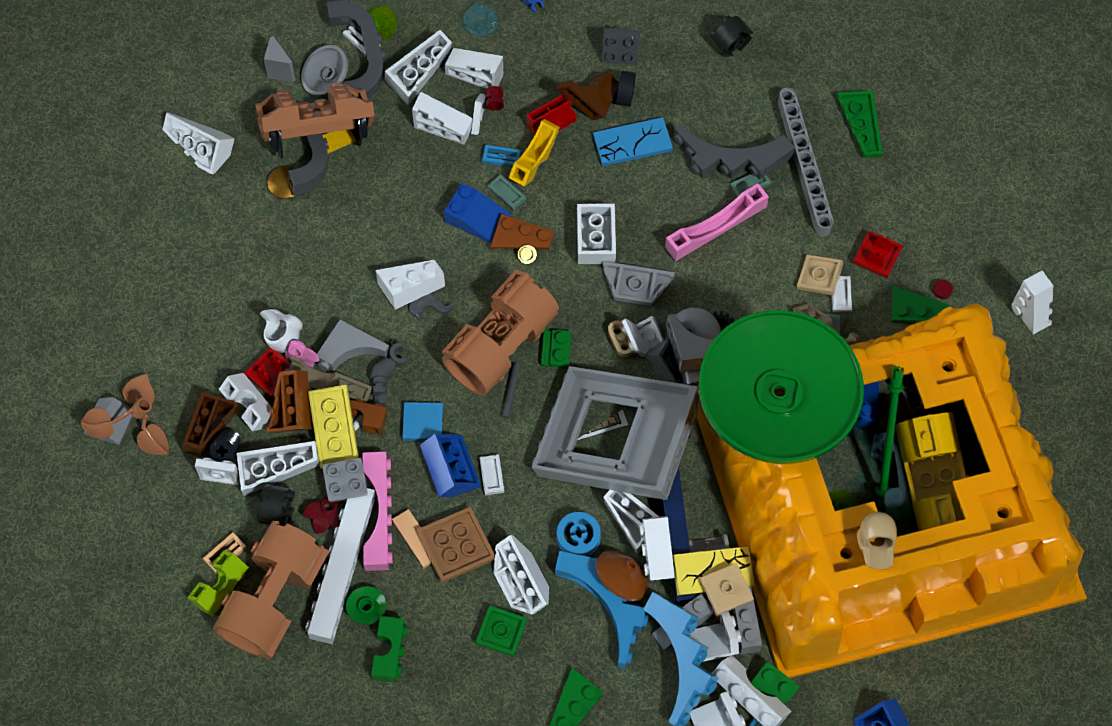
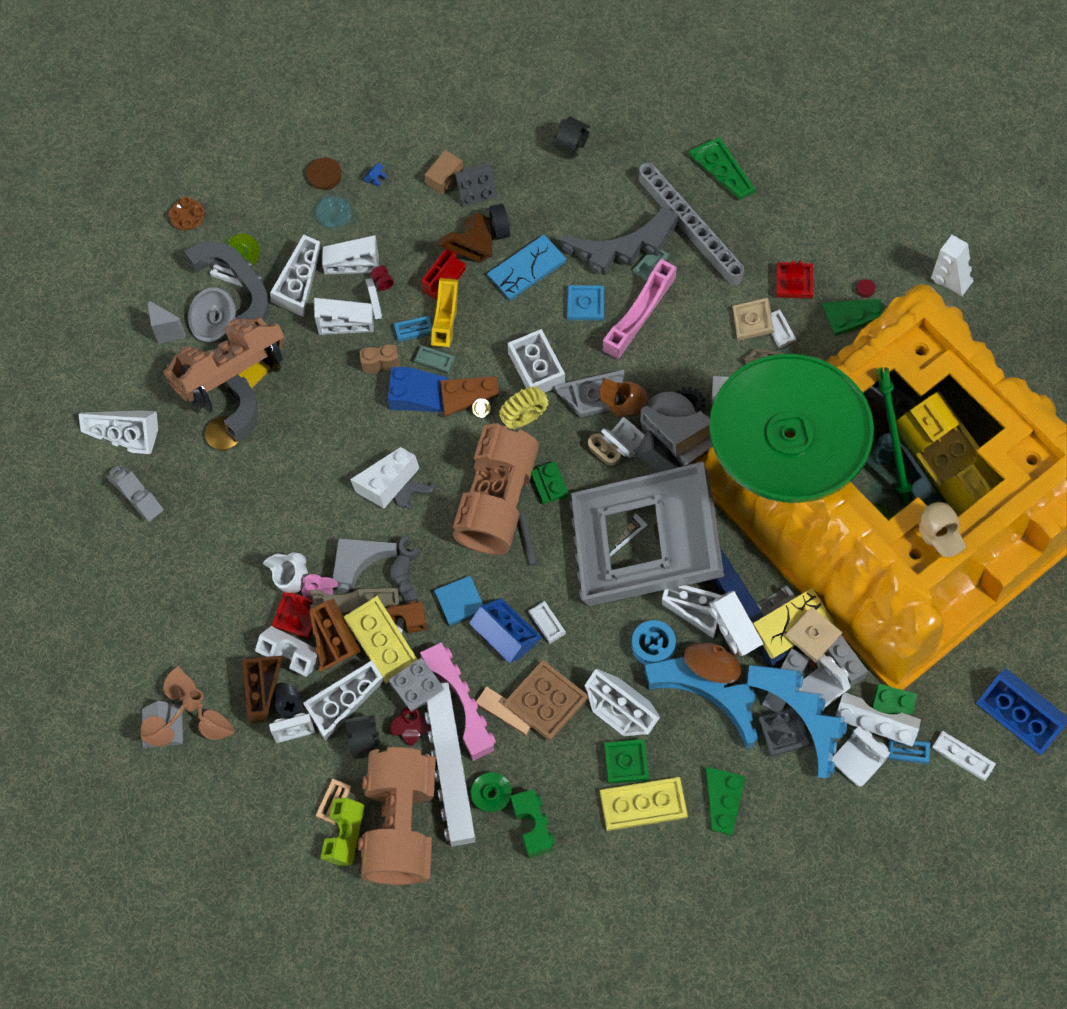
camera: 20 degrees left, 0 degrees up
(182, 203) = (133, 490): none -> light grey arch
(454, 171) = (379, 358): none -> medium nougat brick
(498, 676) = (643, 803): none -> light yellow tile
(563, 269) = (523, 407): none -> light yellow gear
(594, 22) = (443, 171): none -> medium nougat brick
(657, 667) = (783, 732): none -> dark grey plate
(670, 304) = (634, 395): none -> dark orange piece
(671, 196) = (585, 302): none -> dark azure tile

